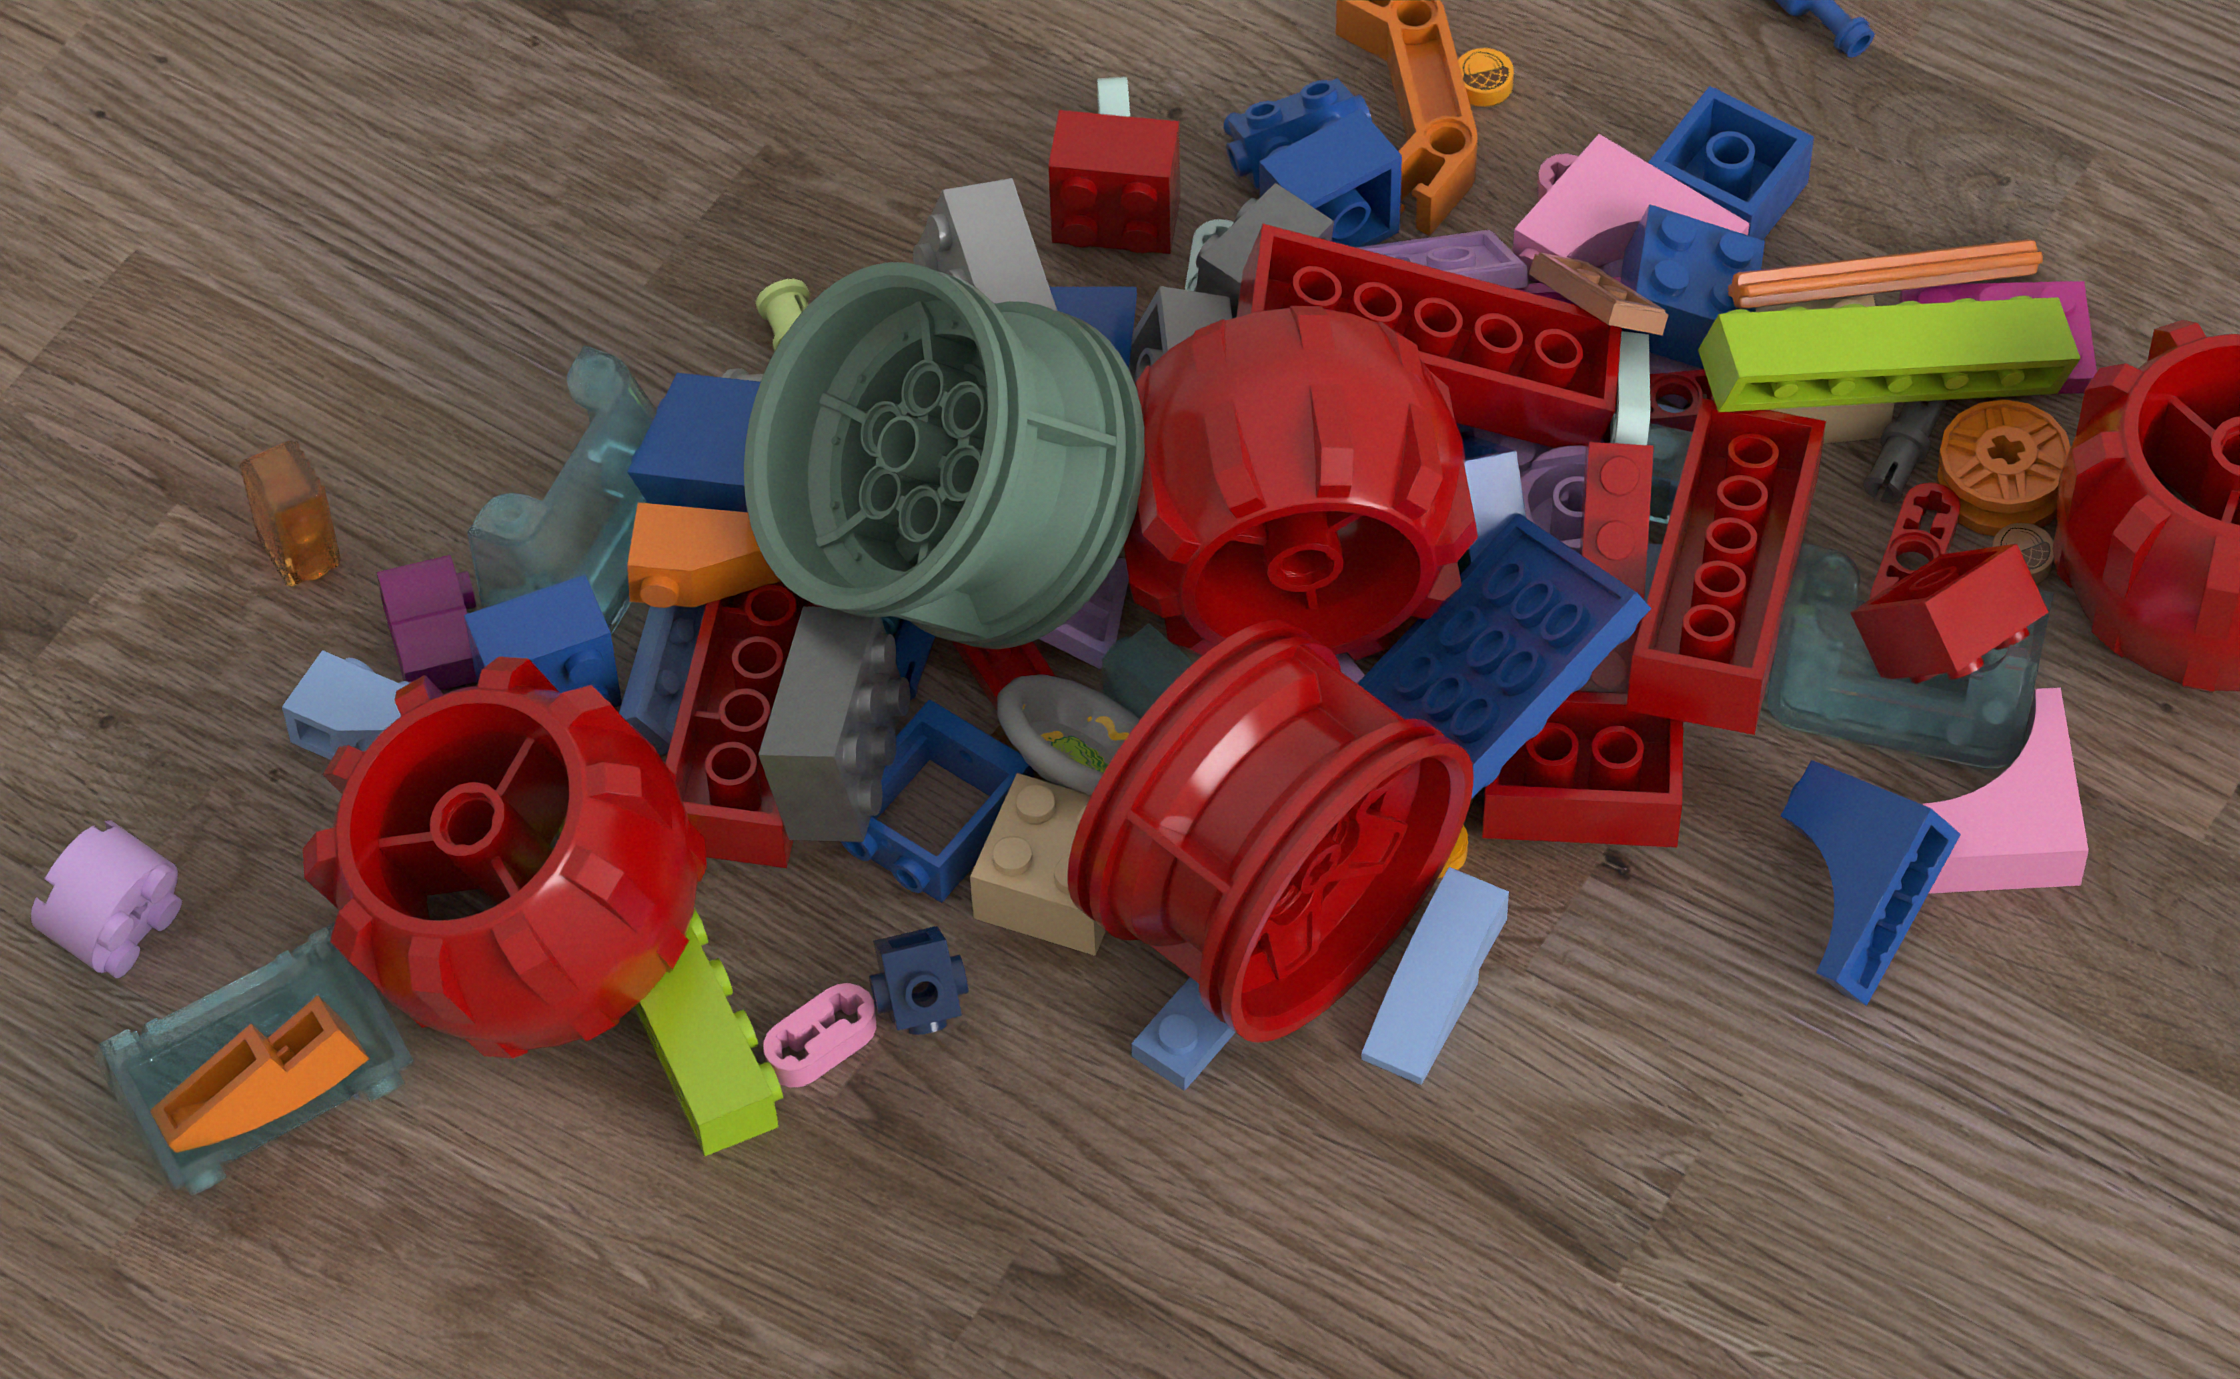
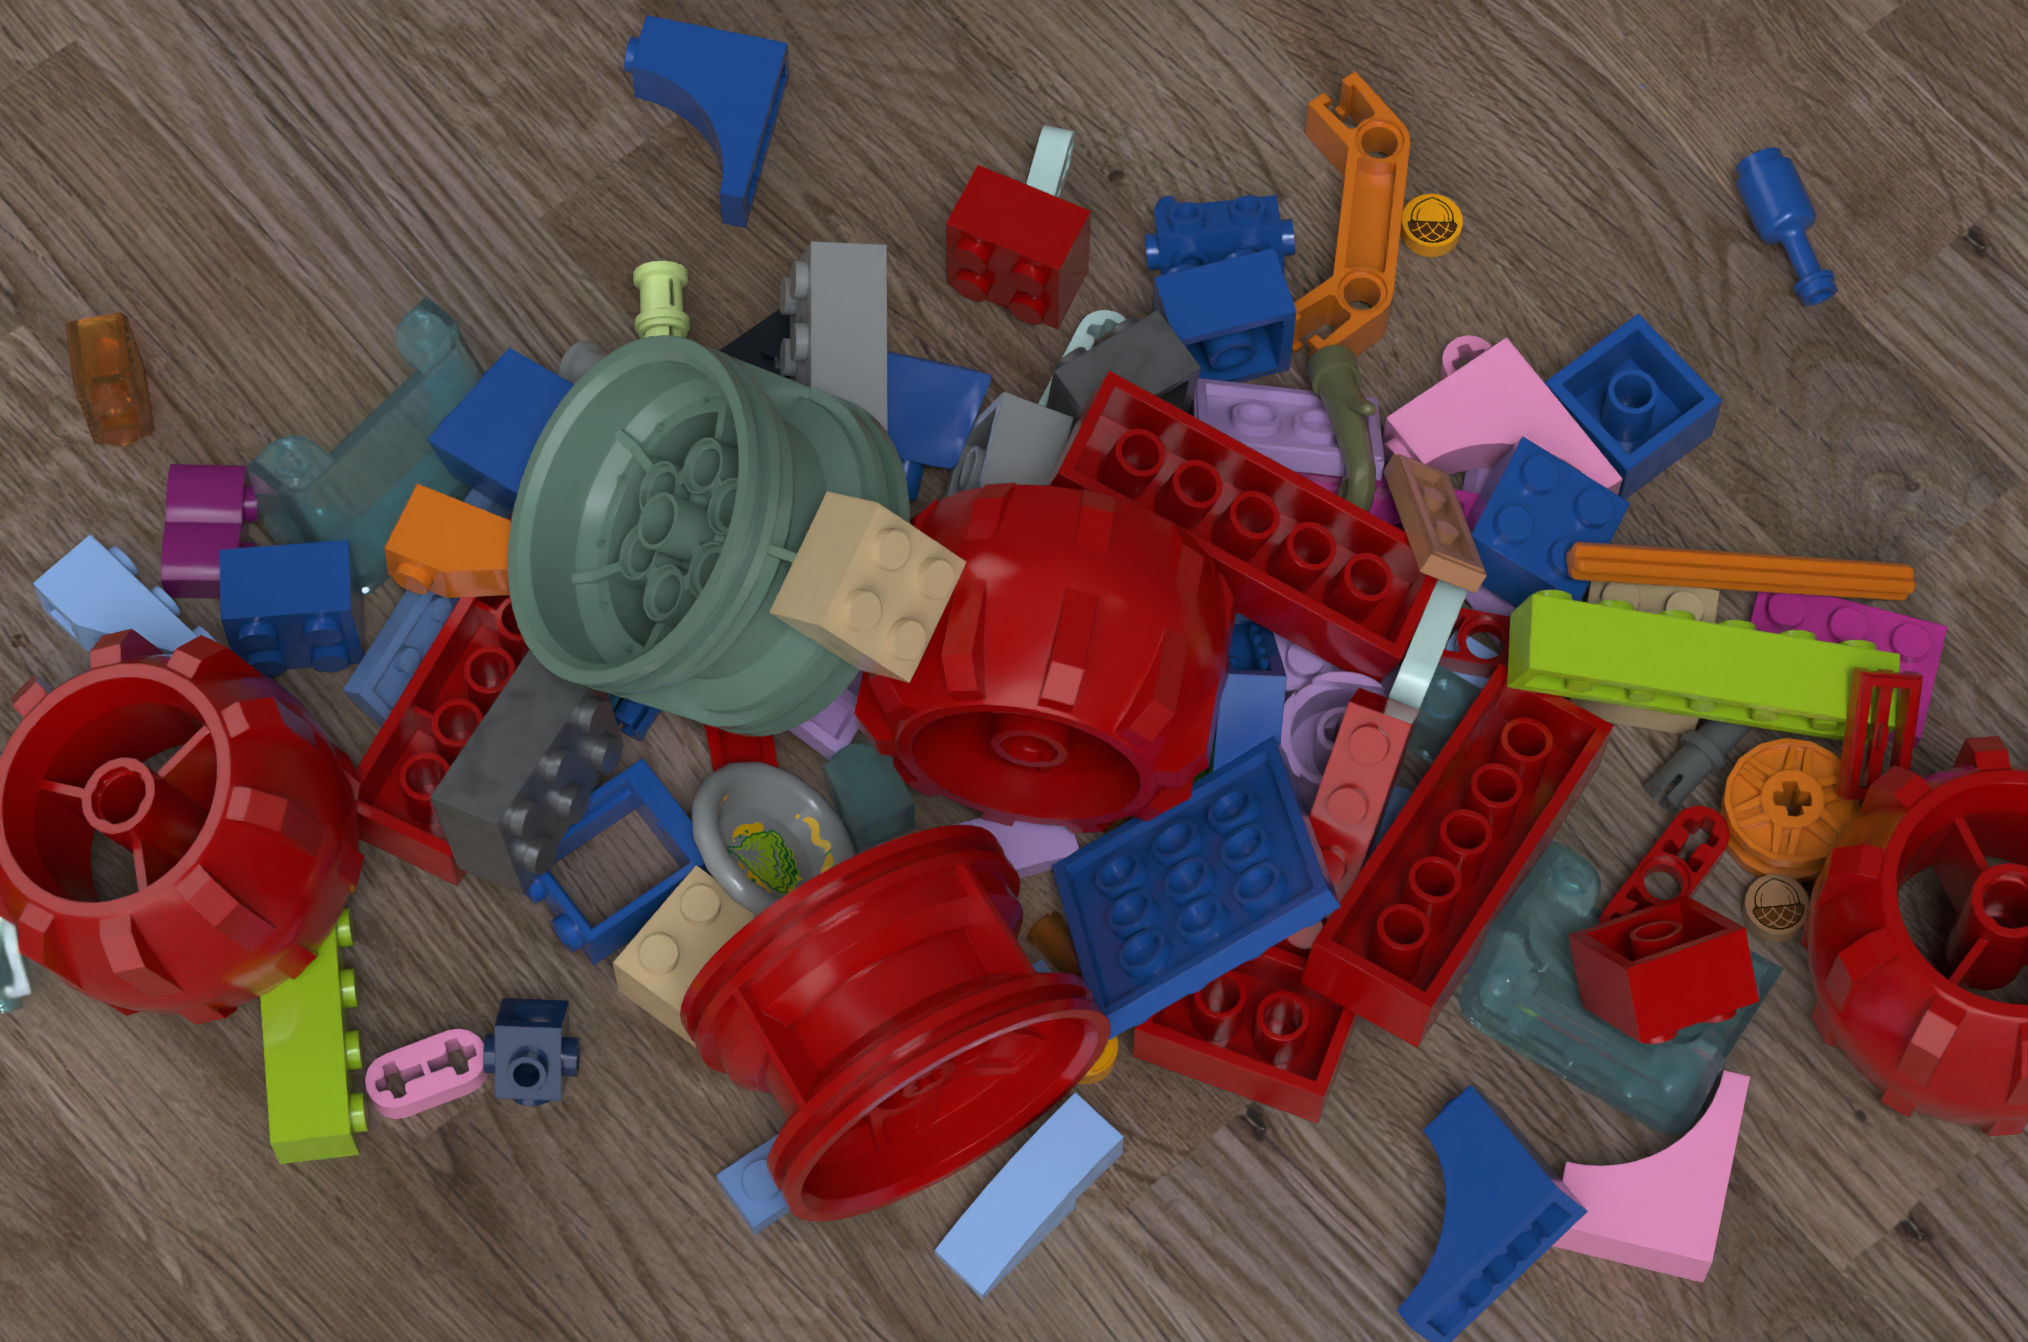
camera: 15 degrees right, 10 degrees up
(776, 126) = (723, 87): none -> blue arch
(1125, 433) = (868, 586): none -> tan brick
(1456, 219) = (1337, 383): none -> olive plant
(2057, 366) = (1857, 723): none -> red tile

